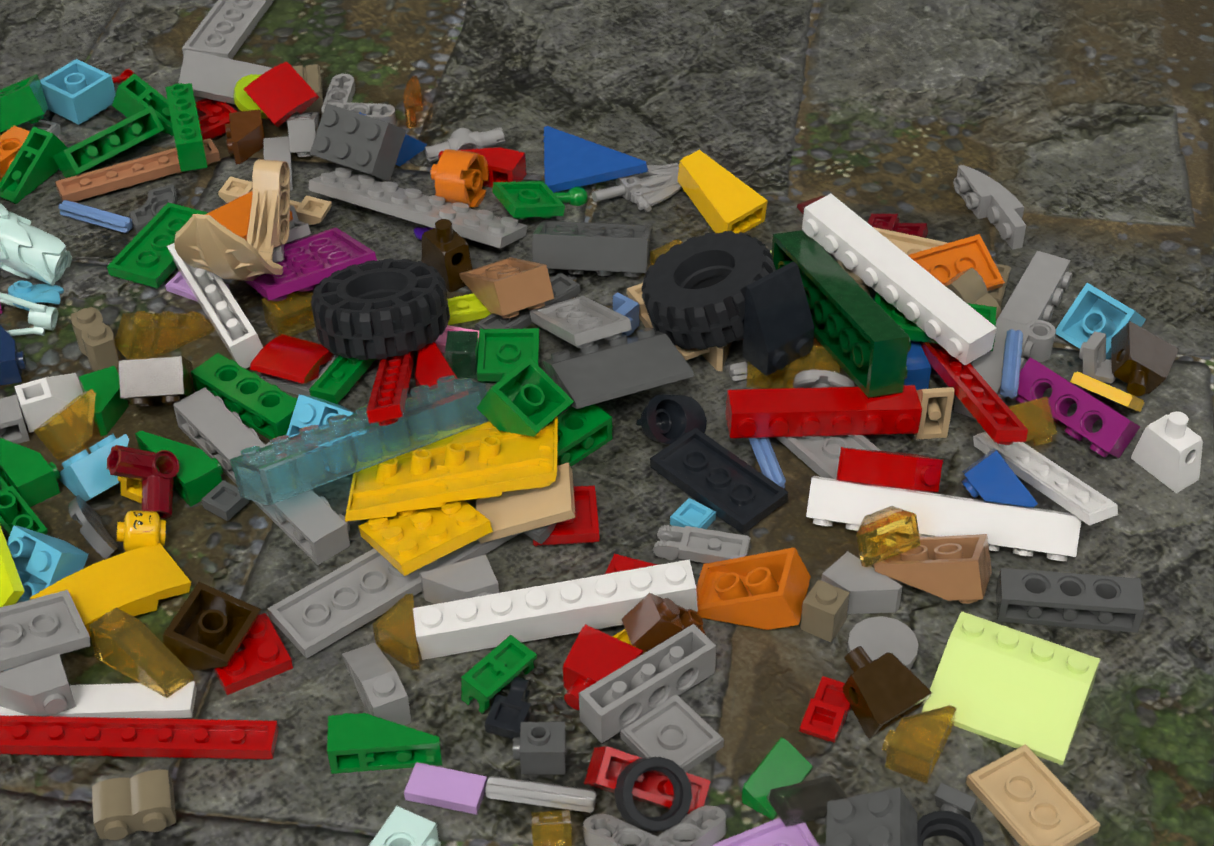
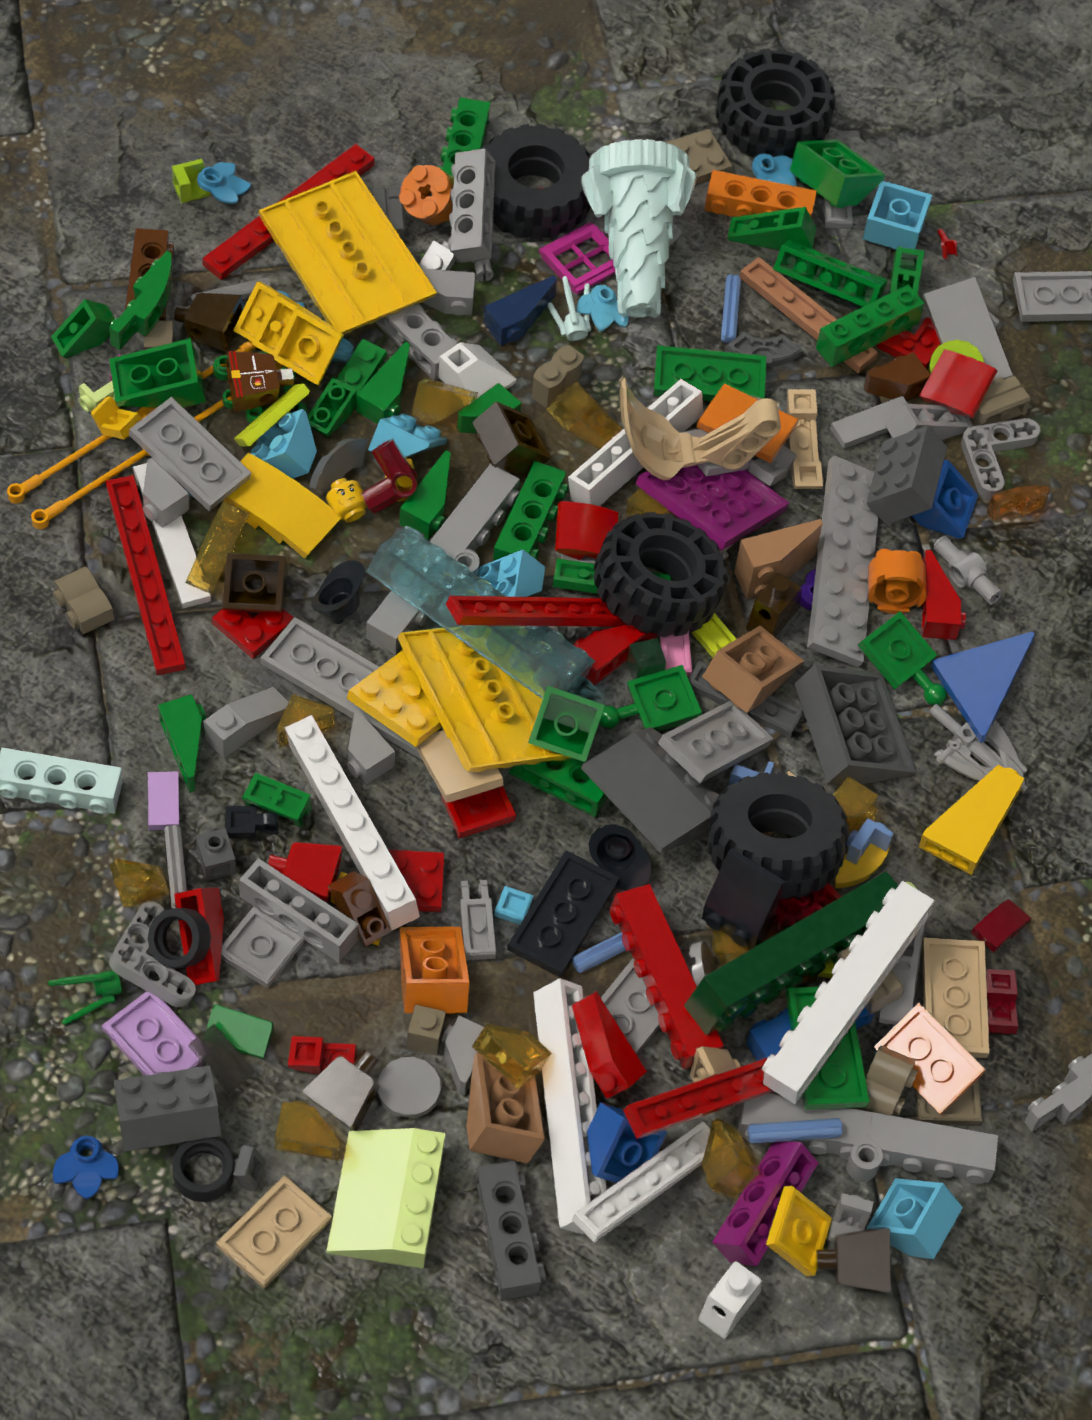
camera: 65 degrees right, 15 degrees up
(256, 557) = (339, 591): none -> black piece
(398, 231) = (775, 553): none -> medium nougat slope

